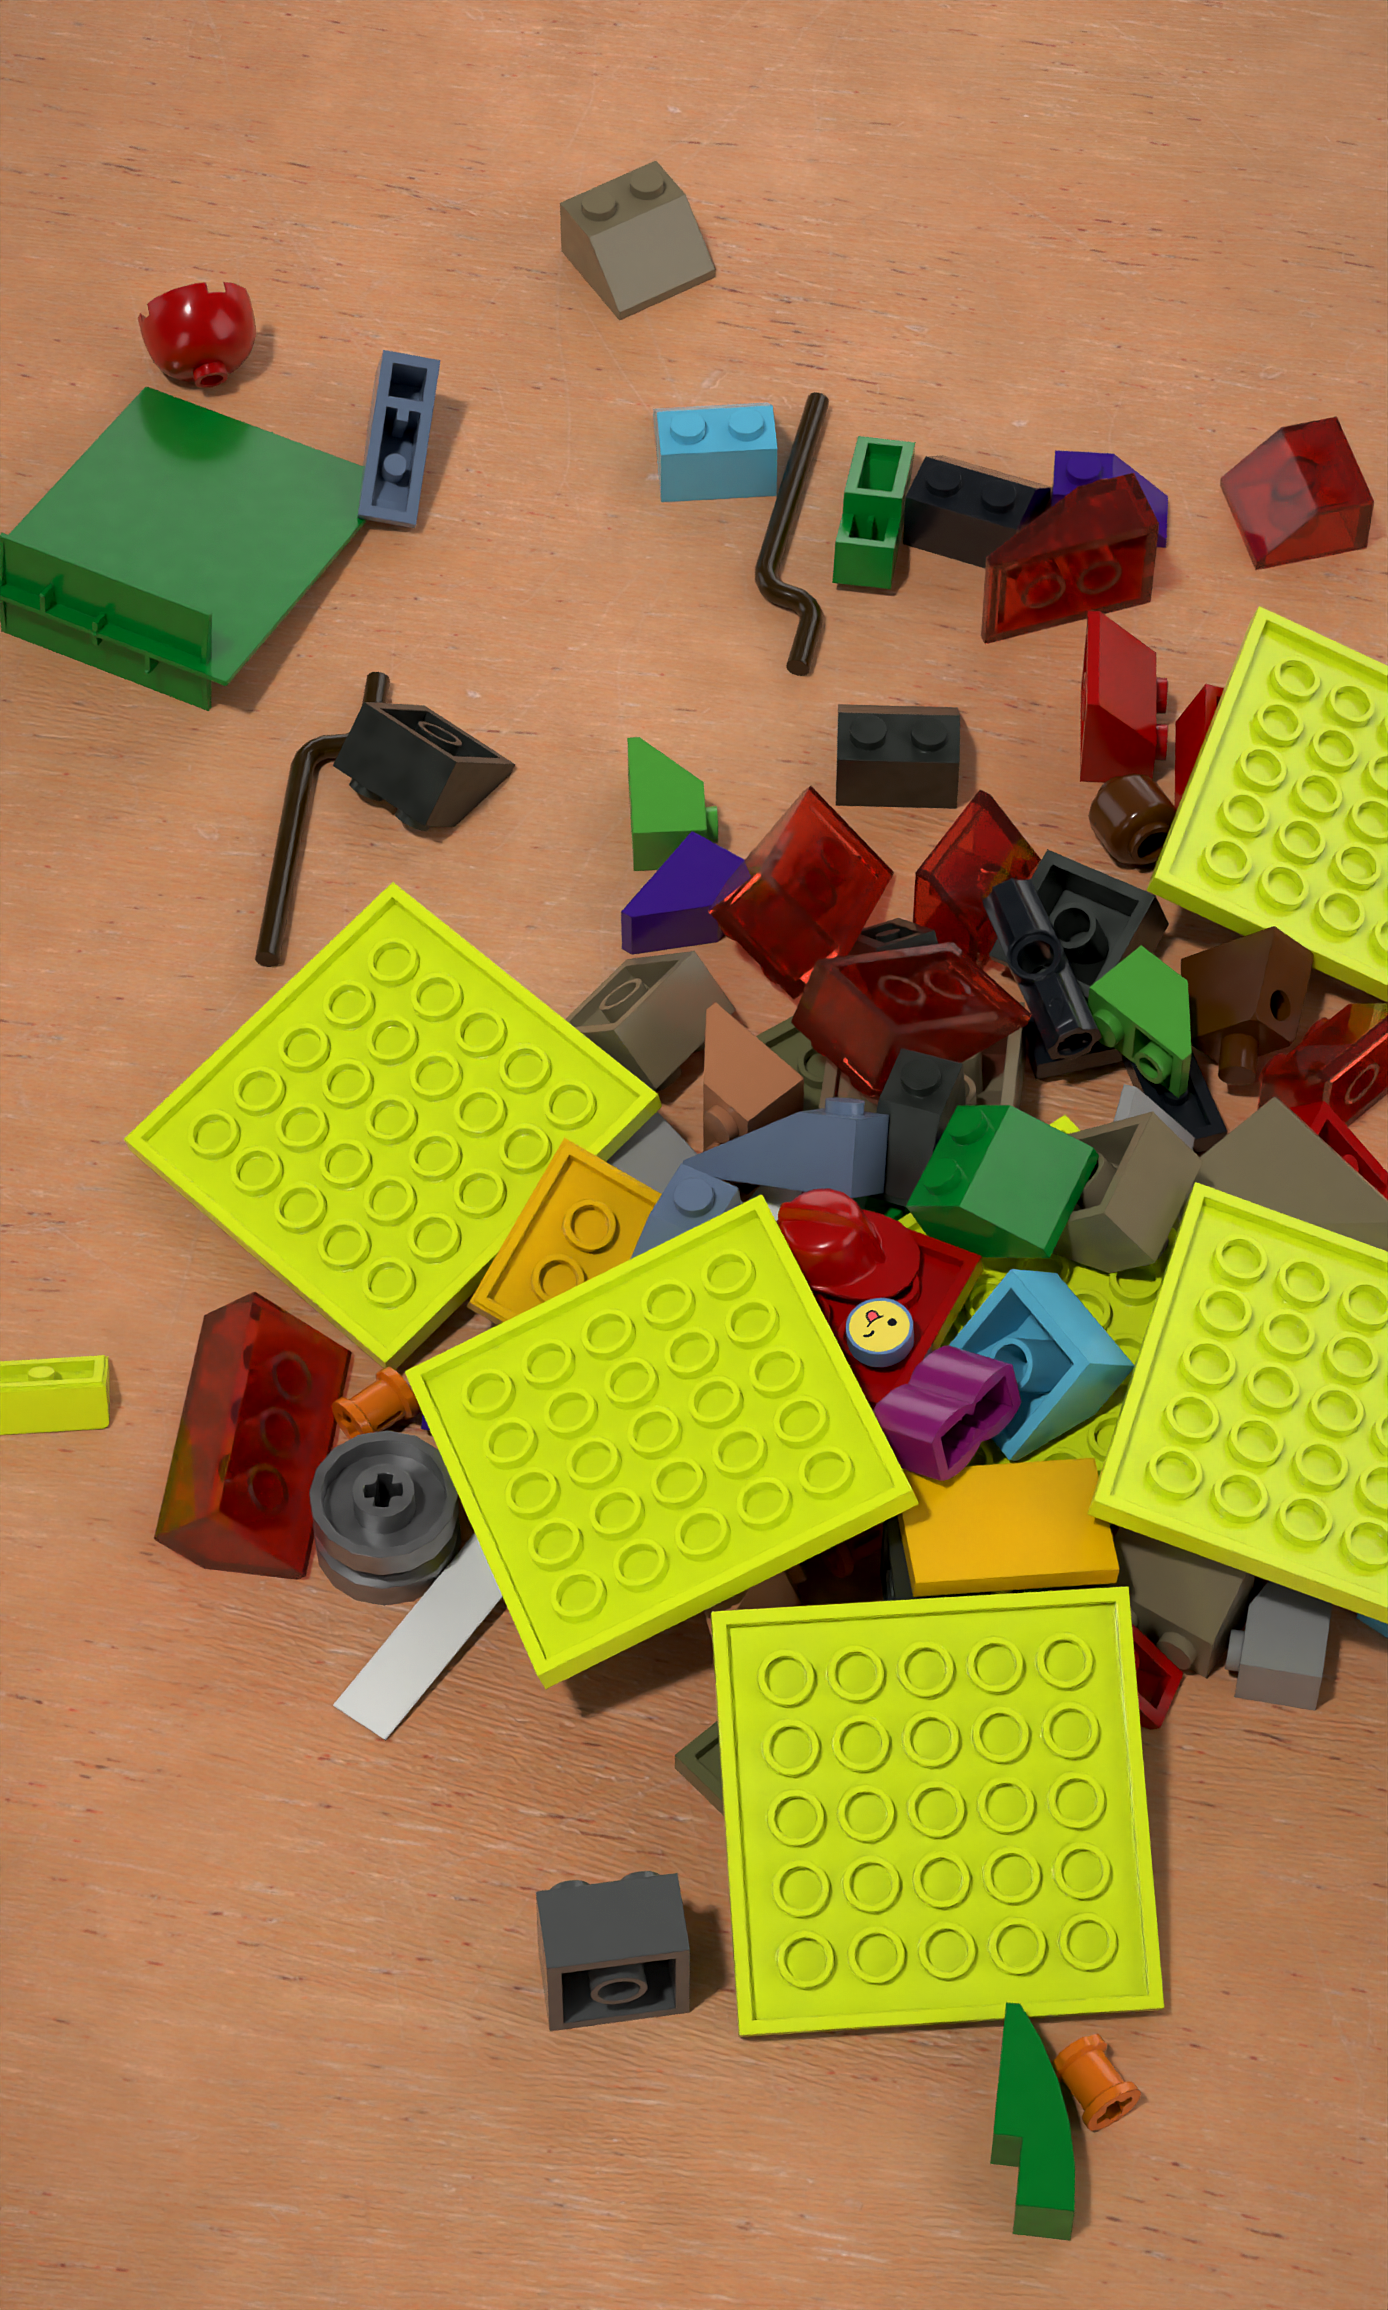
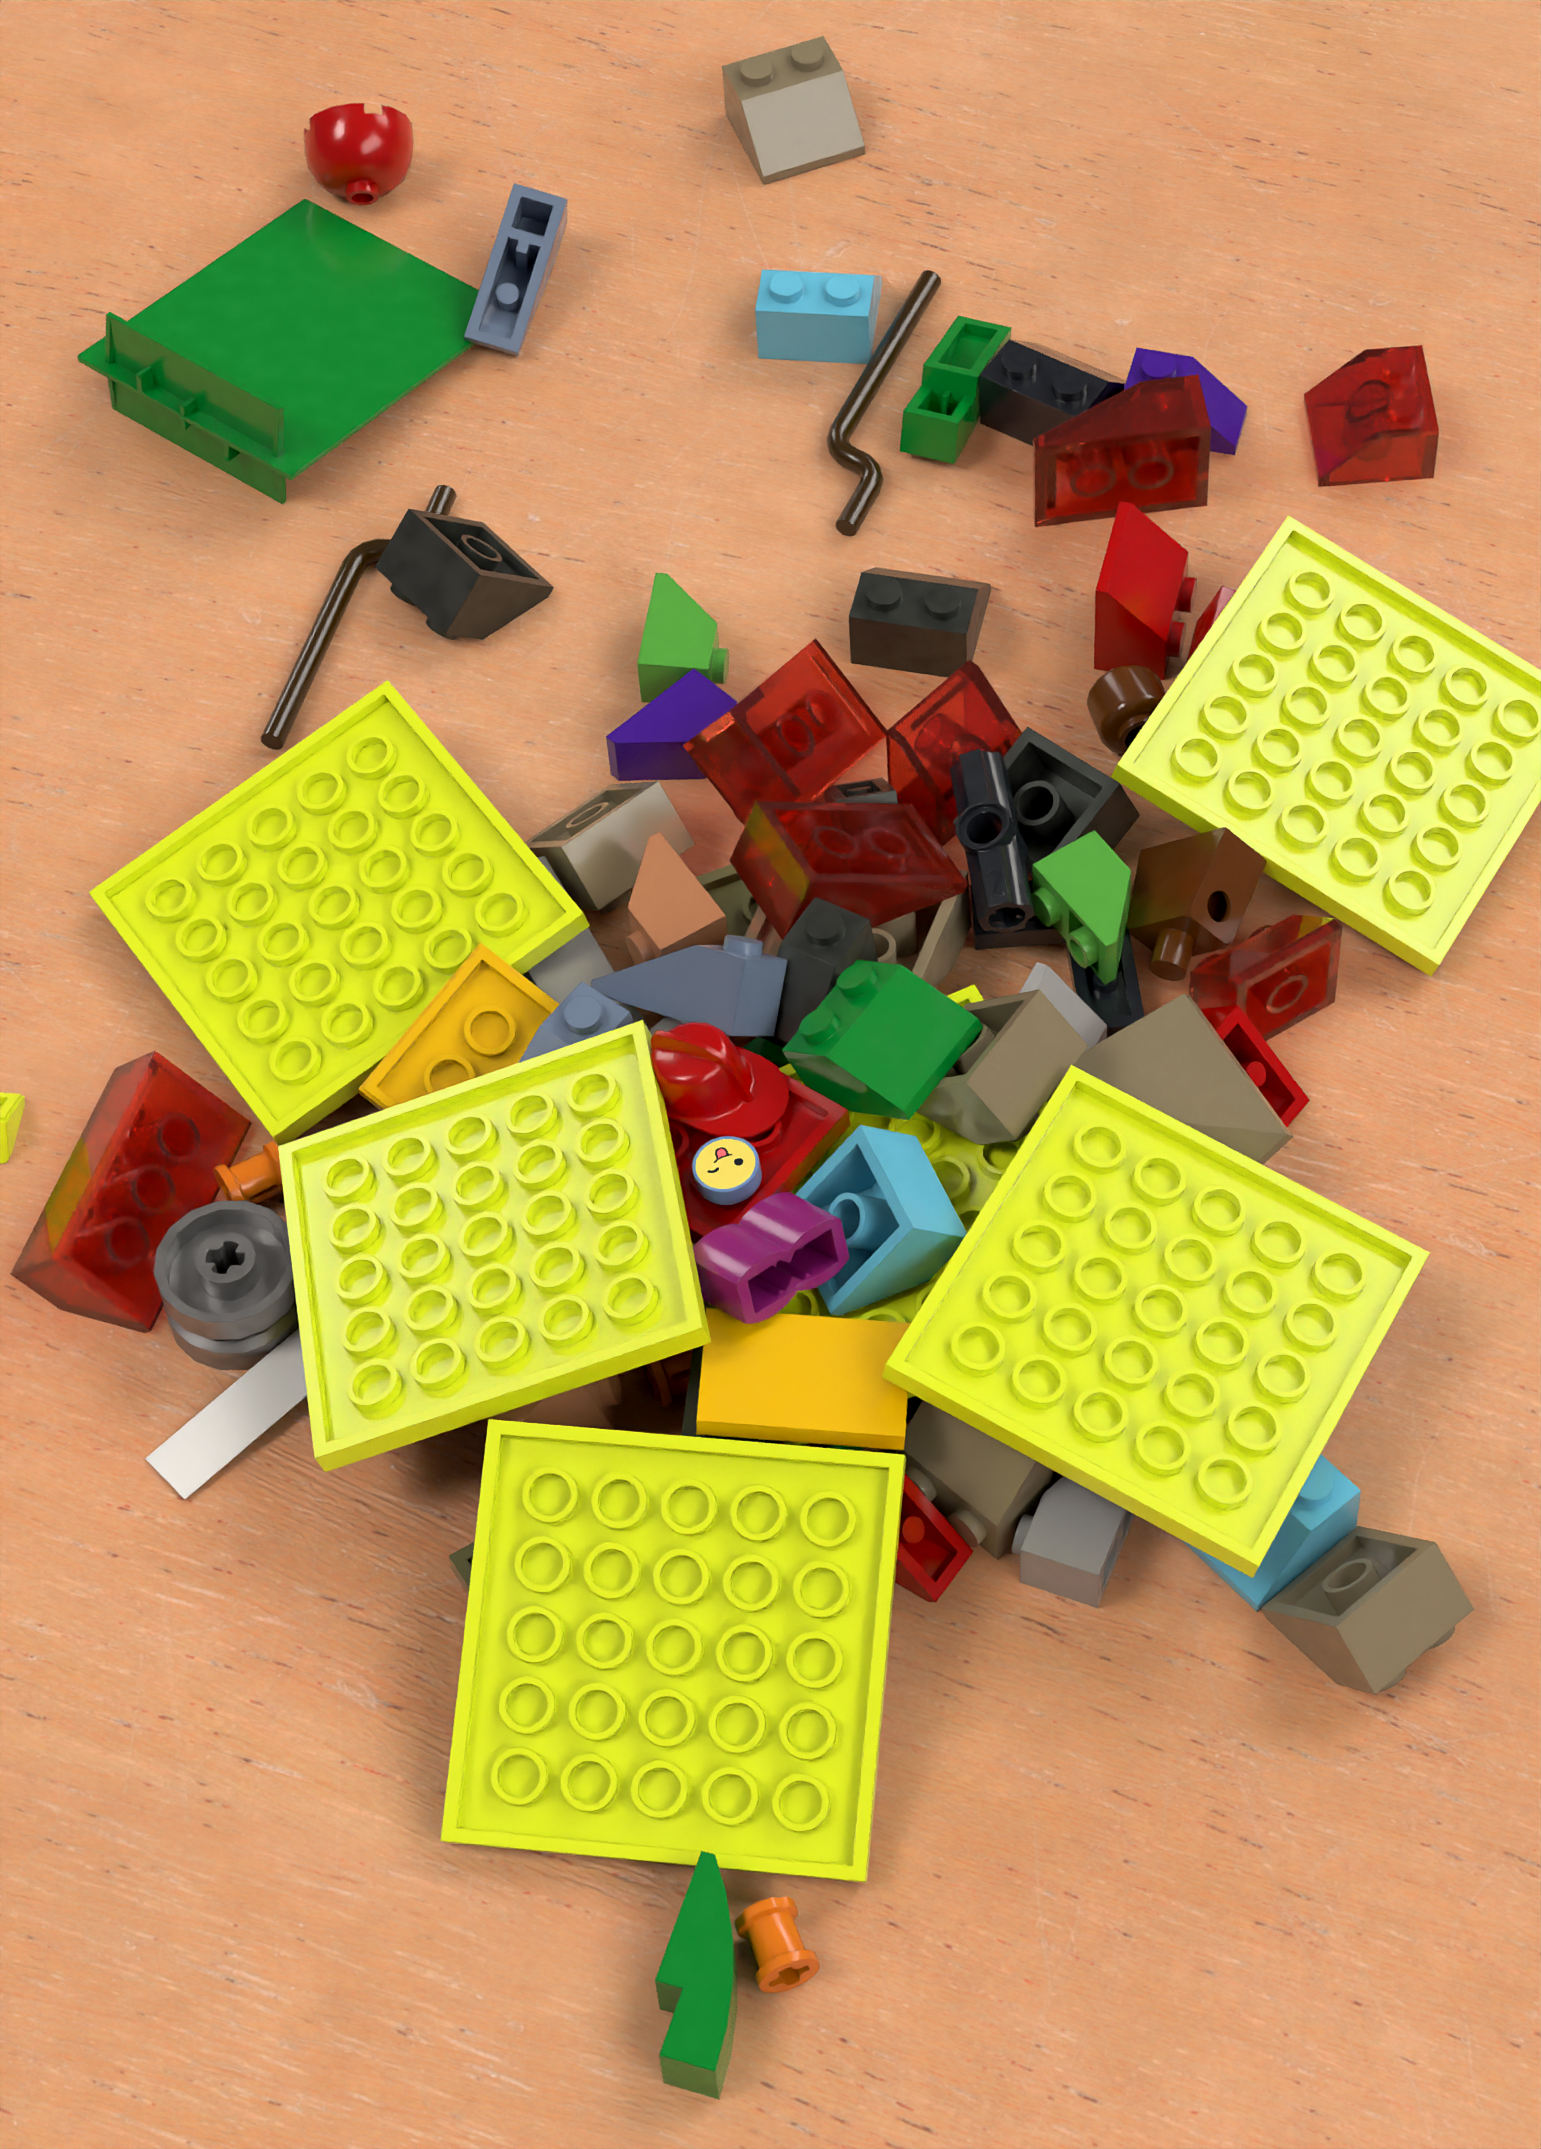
camera: 15 degrees right, 0 degrees up
(613, 1950) = (331, 1738): dark grey brick -> none

